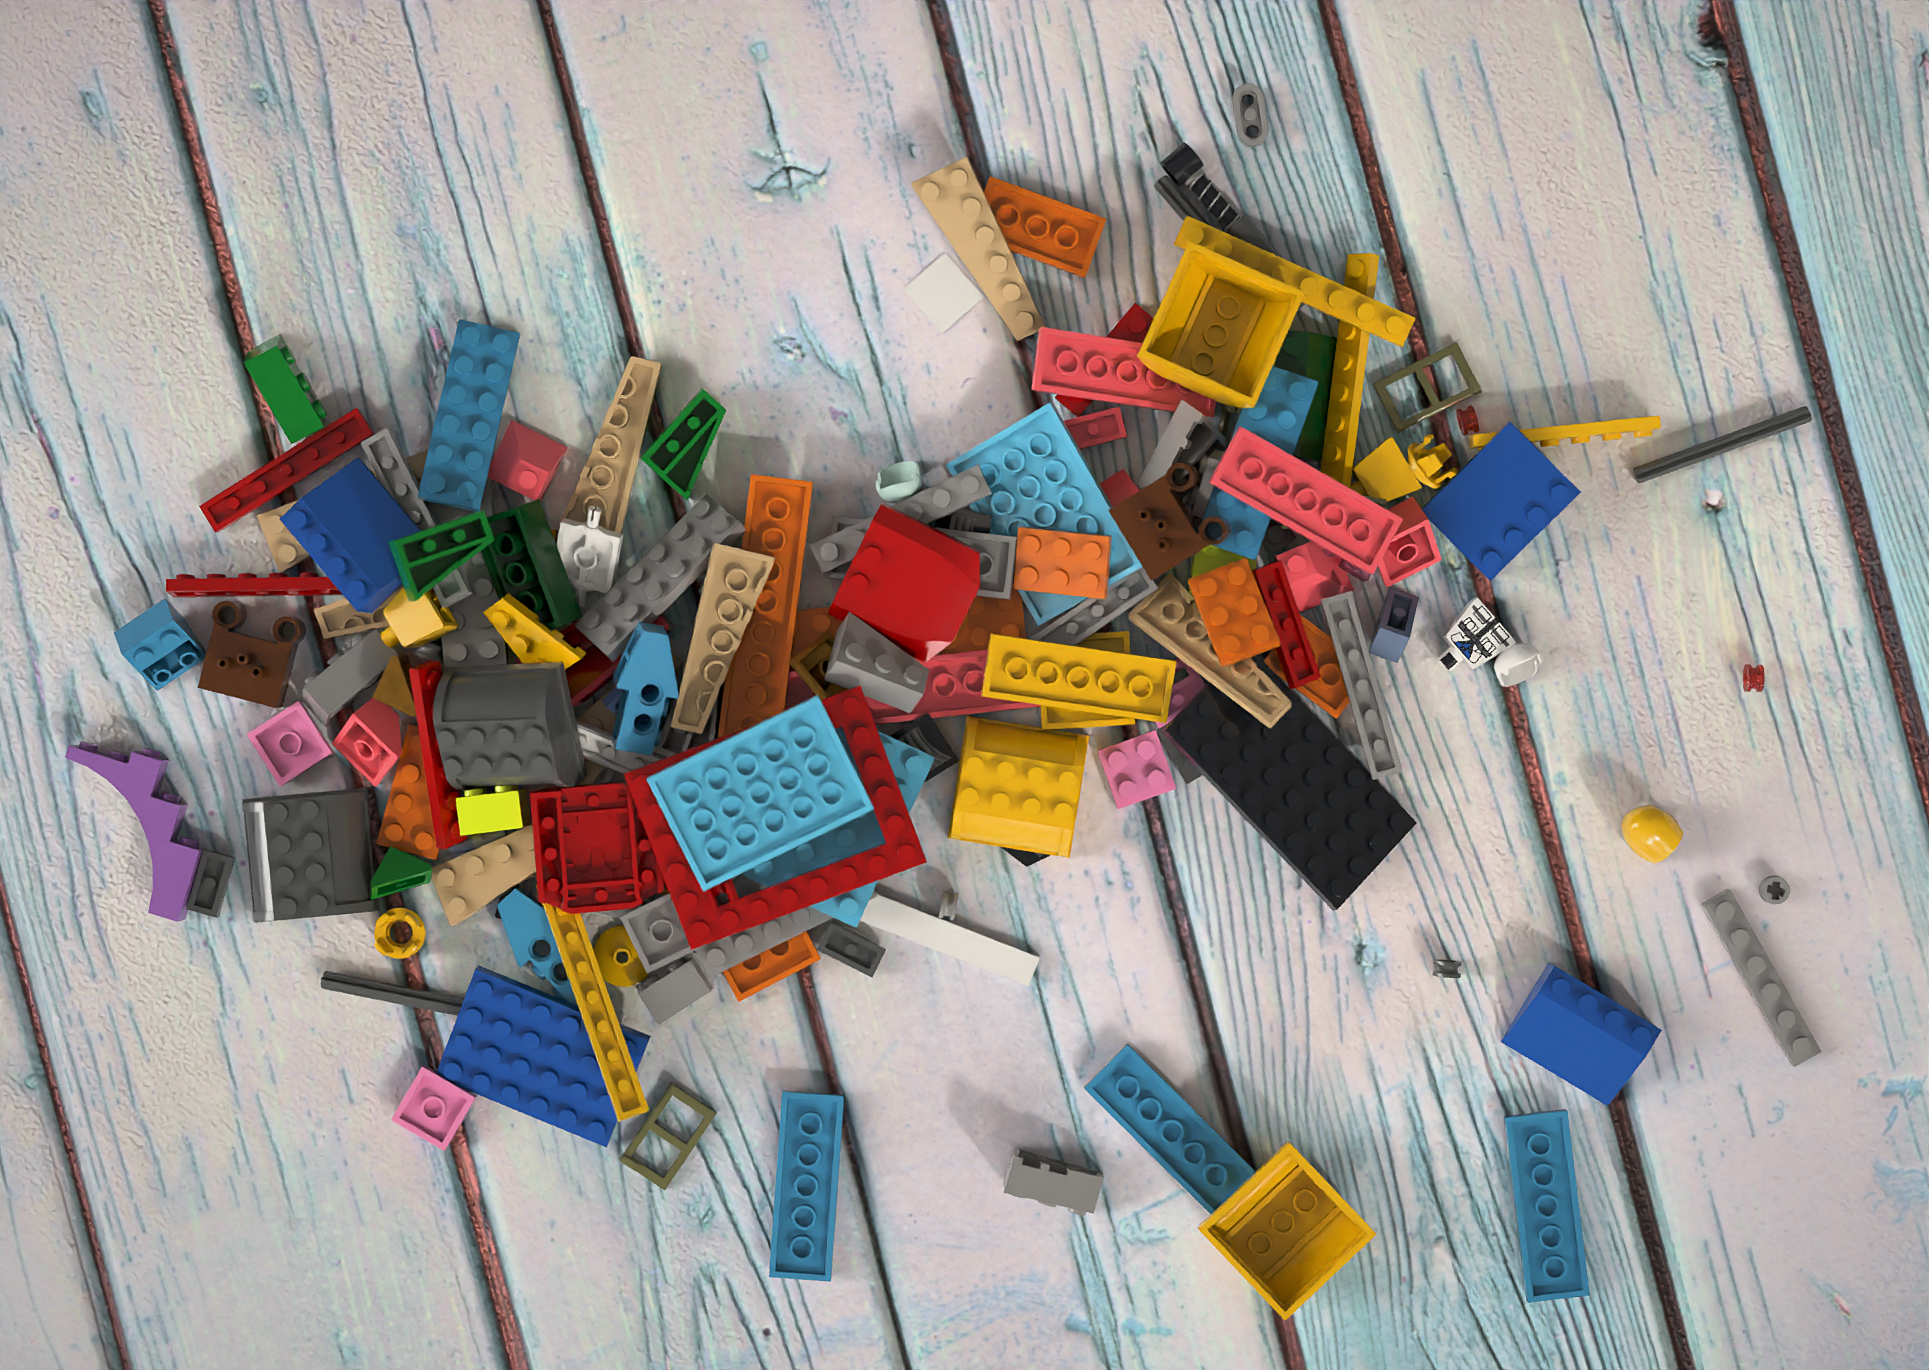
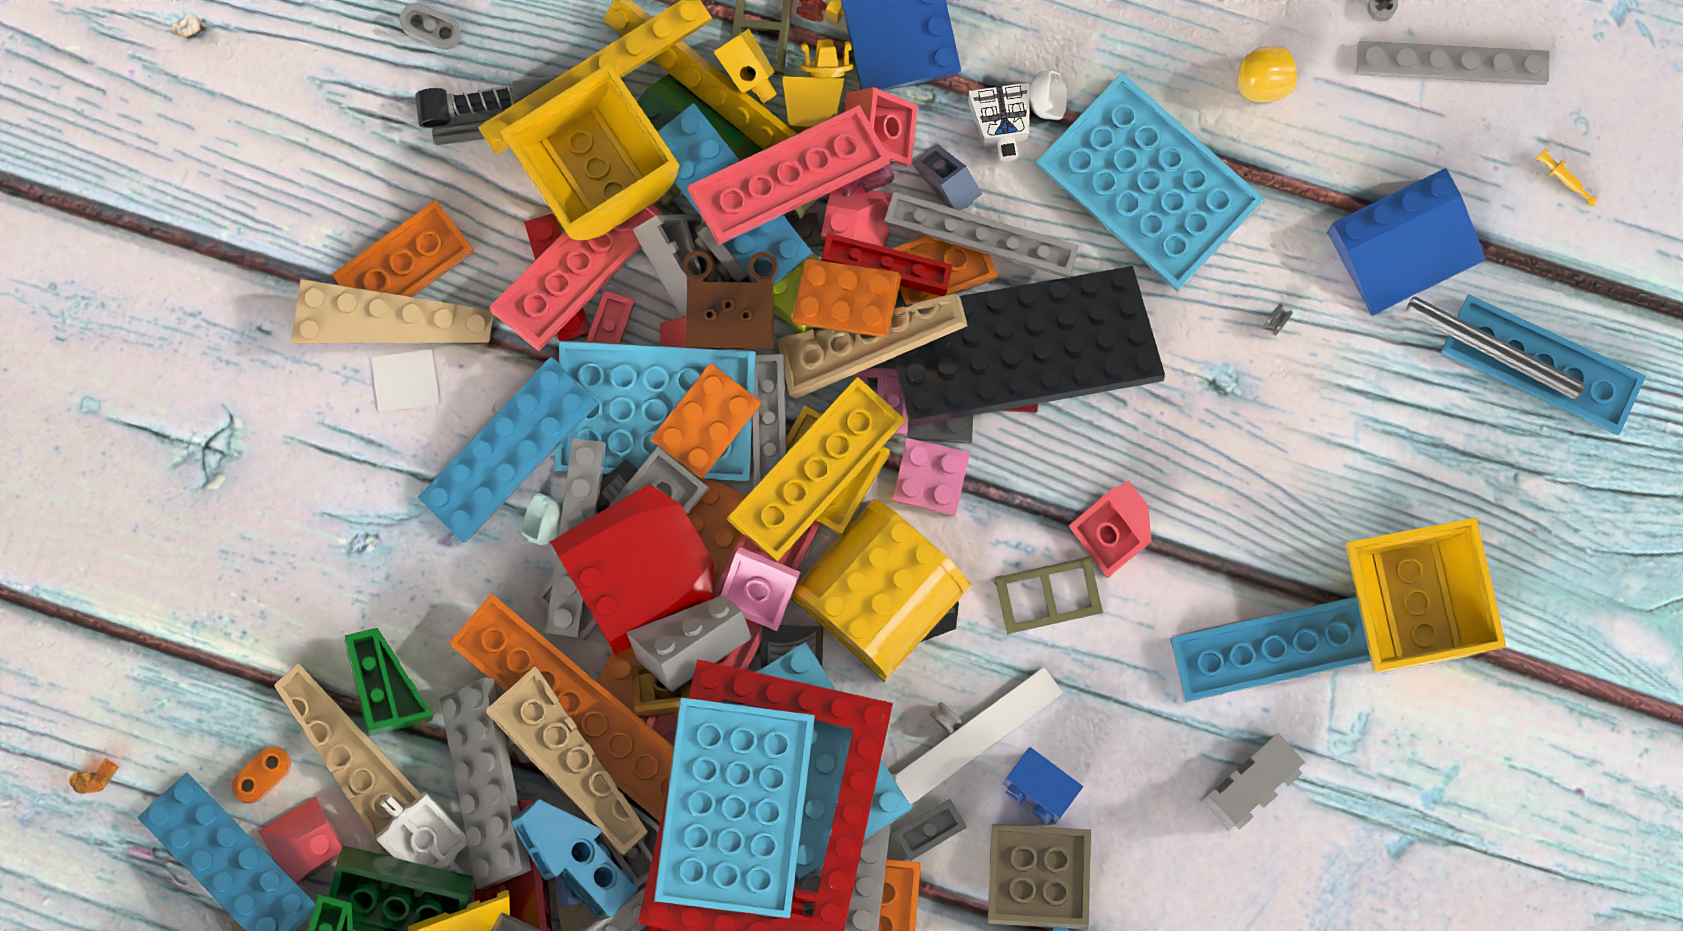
camera: 60 degrees left, 10 degrees down
(464, 263) = (94, 781): none -> clear orange arm
(555, 393) = (262, 777): none -> orange plate
(869, 1059) = (1039, 876): none -> dark tan plate
(937, 417) = (508, 450): none -> dark azure plate
(941, 1018) = (1041, 786): none -> blue brick
(953, 694) = (760, 587): none -> bright pink plate
(1116, 909) = (1044, 572): none -> olive window
(1188, 945) = (1114, 528): none -> coral slope
(1383, 390) = (745, 52): none -> yellow torso
(1497, 792) = (1149, 181): none -> medium azure plate
(1534, 1160) = (1495, 347): none -> axle
(1721, 1126) = (1565, 176): none -> yellow piece

